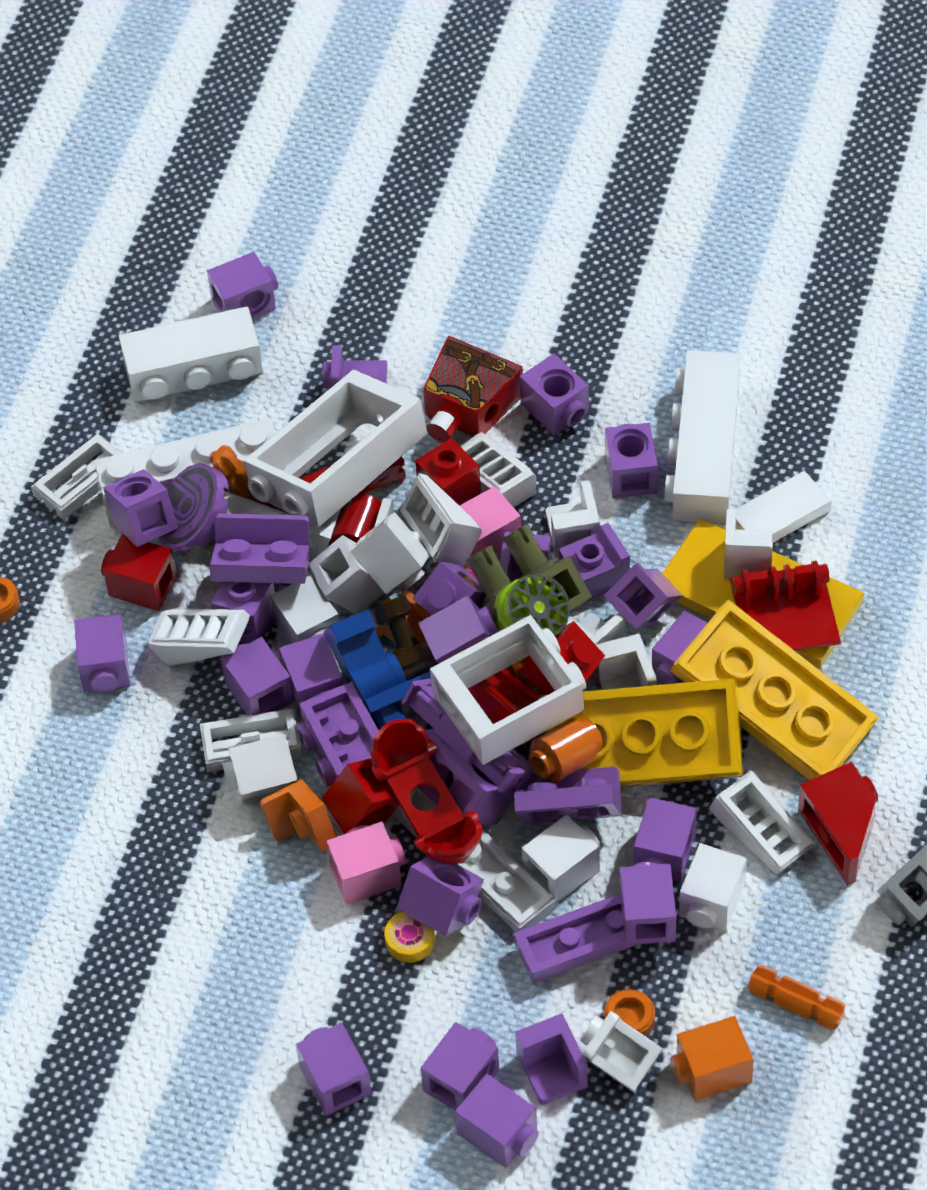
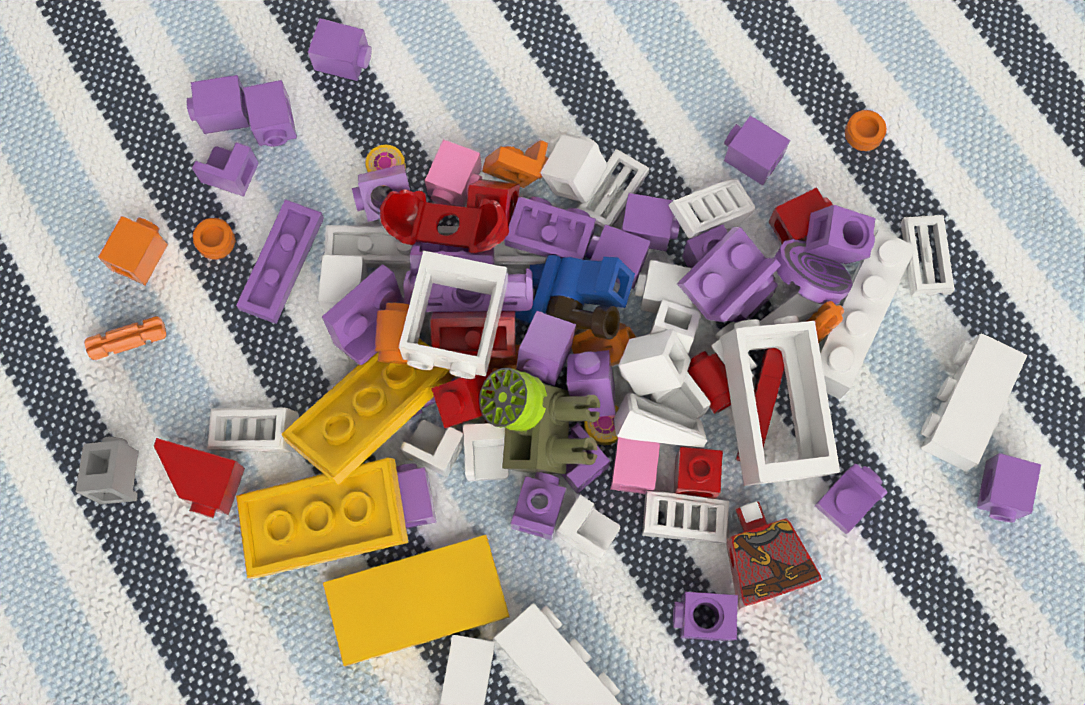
camera: 130 degrees right, 20 degrees up
(619, 1050) = (190, 203): white bracket -> none
(631, 460) = (590, 599): medium lavender brick -> none
(642, 596) = (470, 504): medium lavender brick -> none
(647, 903) = (250, 289): medium lavender brick -> none
(666, 835) = (293, 355): medium lavender brick -> none
(712, 887) = (234, 352): white brick -> none
(746, 548) = (443, 612): white panel -> none
(790, 604) = (377, 594): red hinge -> none

